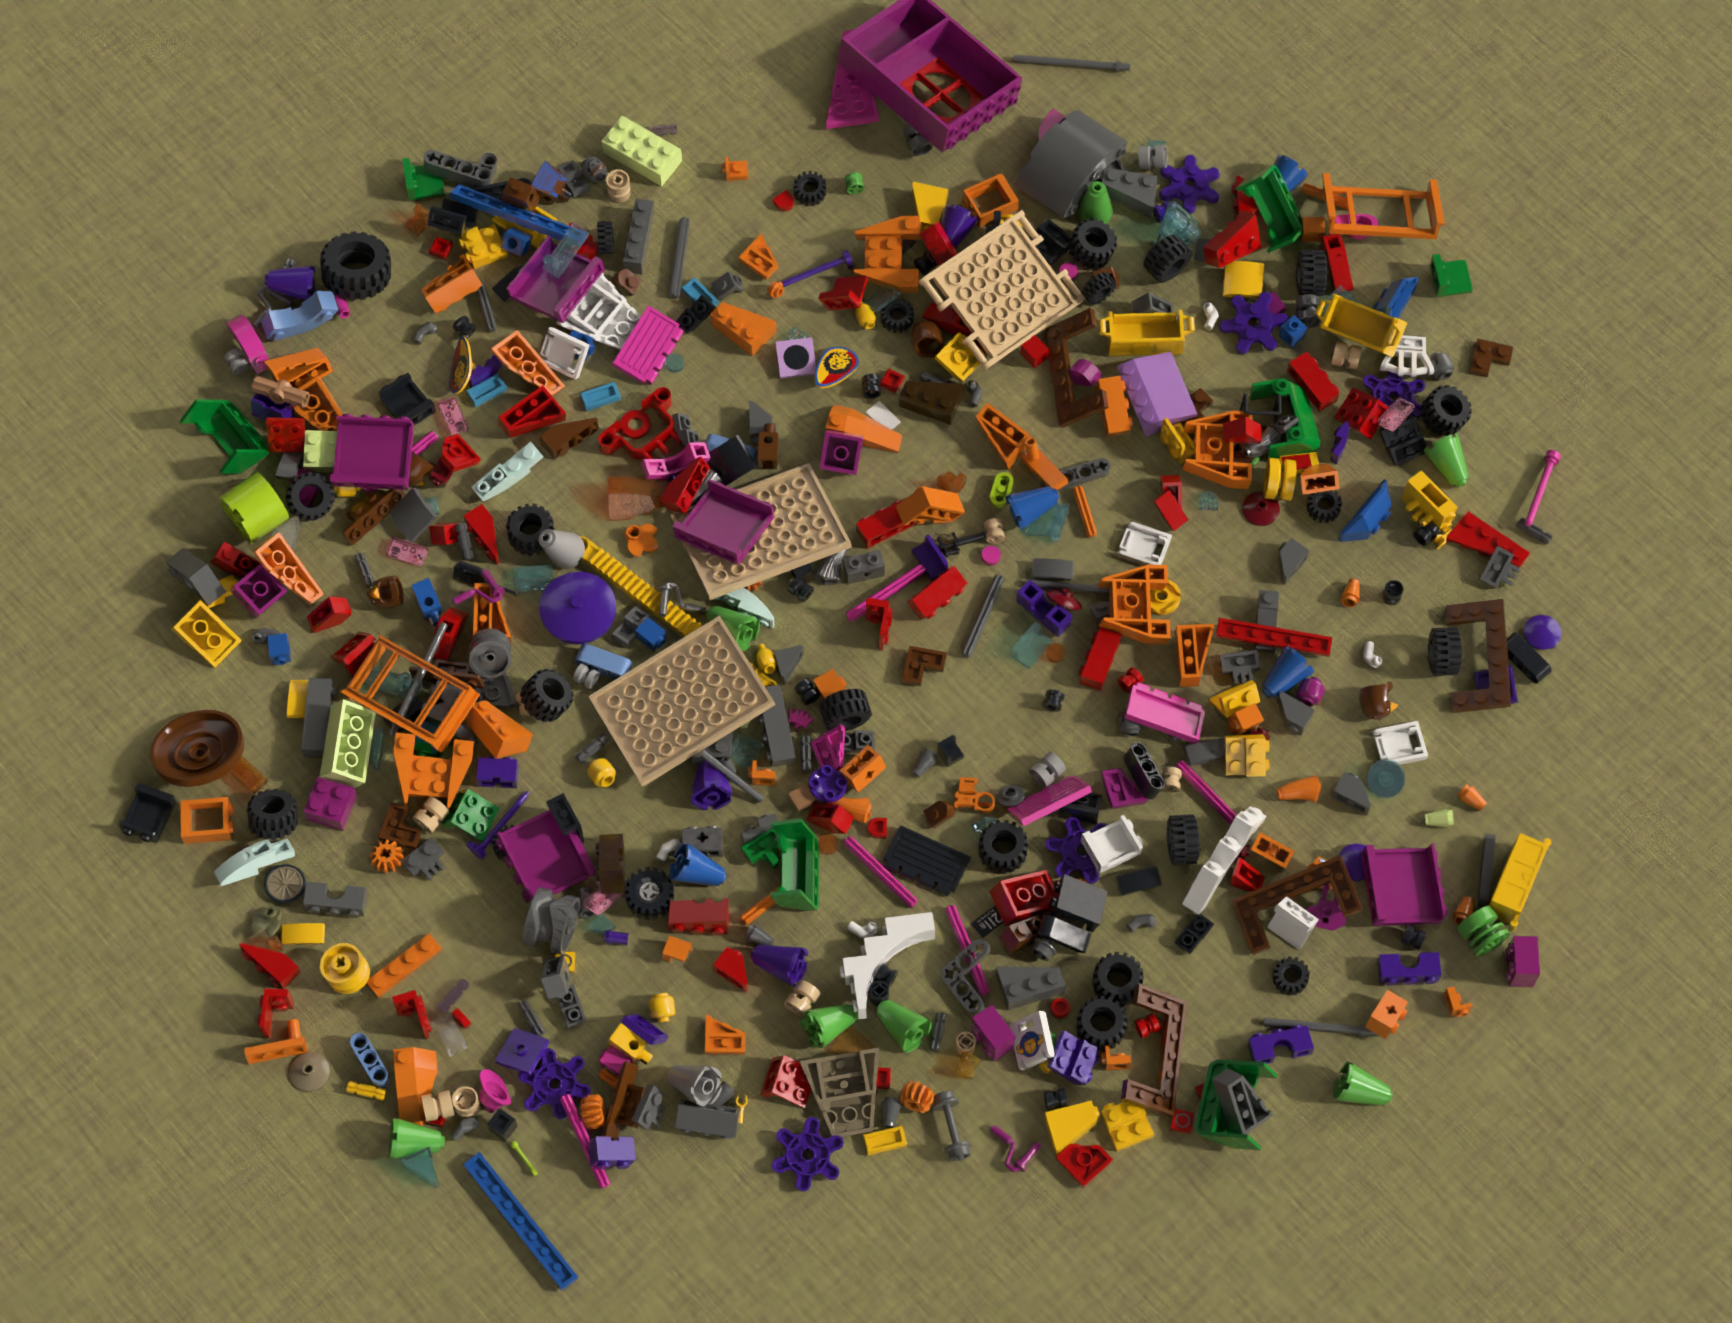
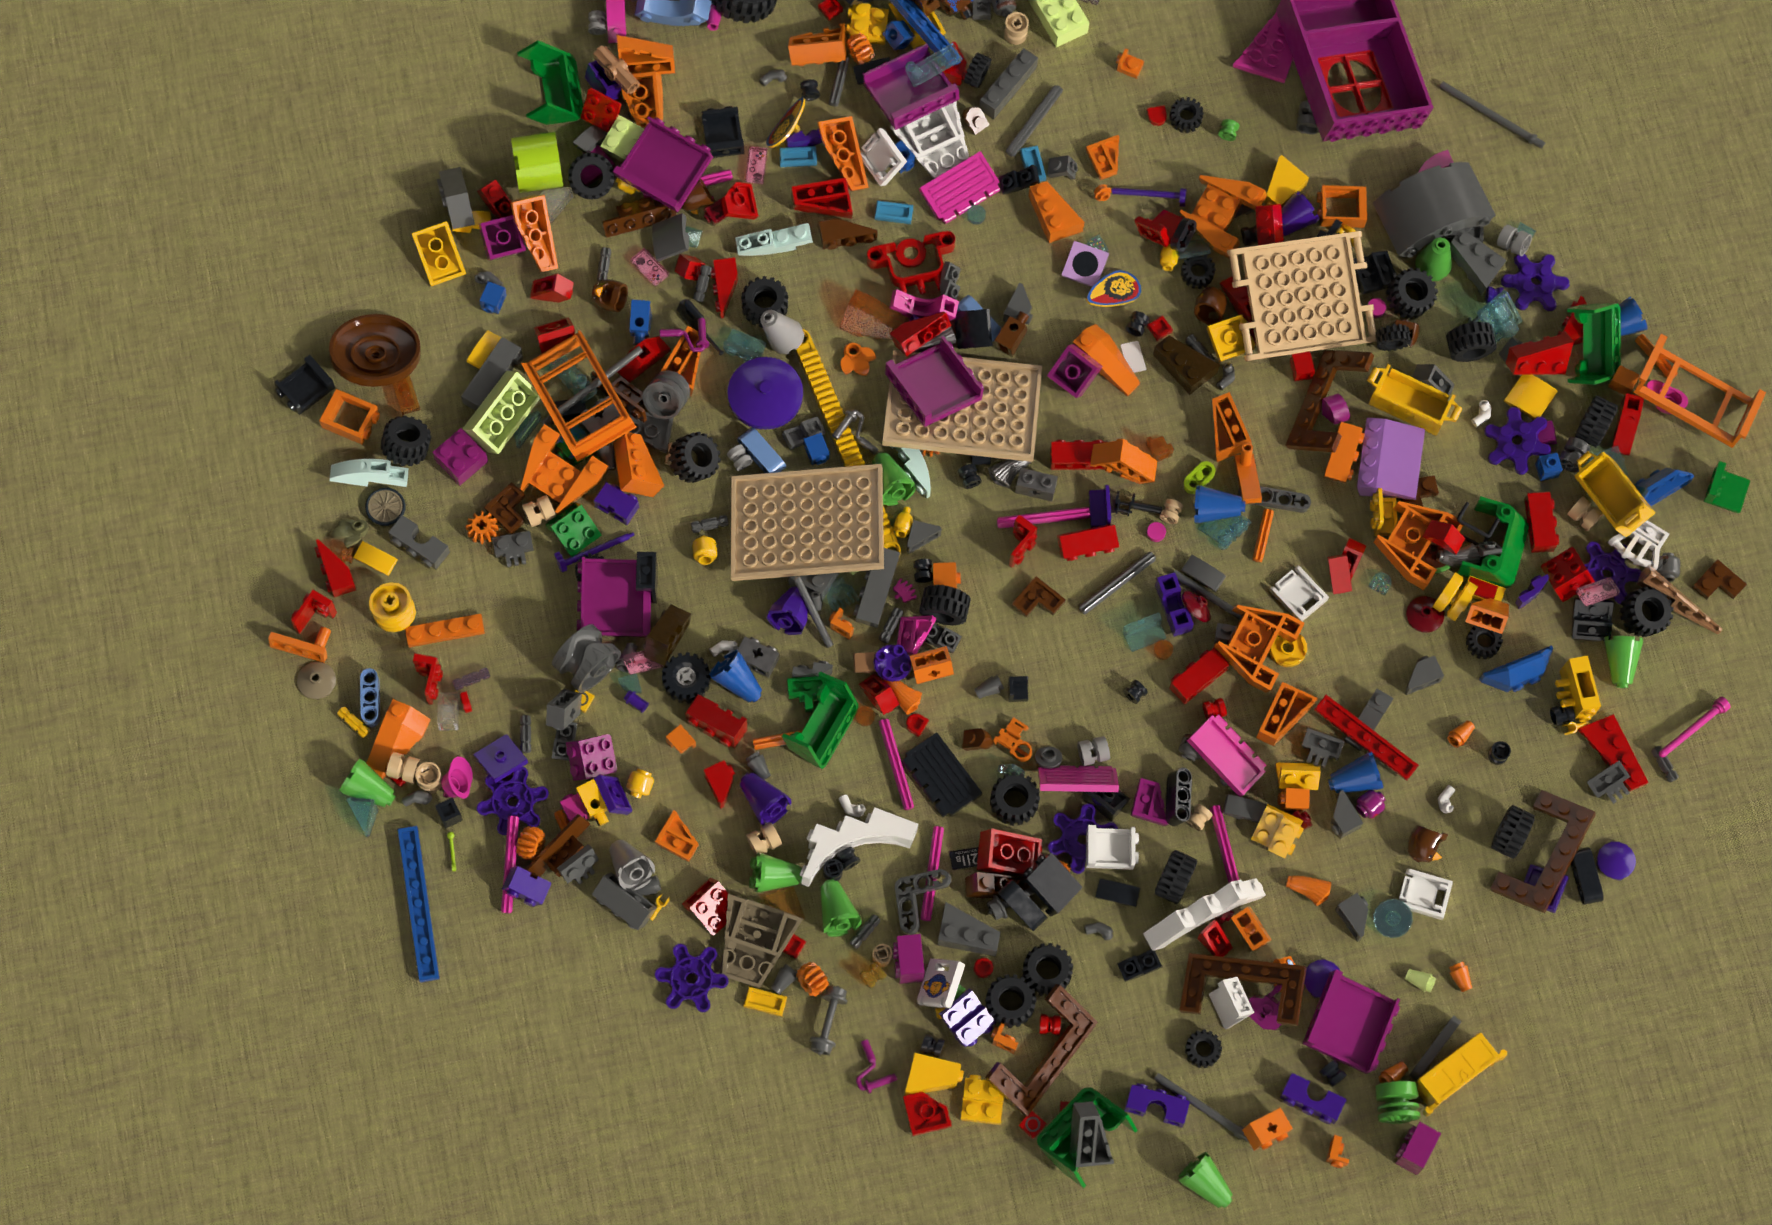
camera: 25 degrees right, 5 degrees up
(489, 269) = (860, 48): none -> orange gear
(604, 1007) = (591, 757): none -> magenta bracket
(868, 289) = (1183, 235): none -> black beam
(1472, 390) = (1680, 602): none -> medium nougat wedge

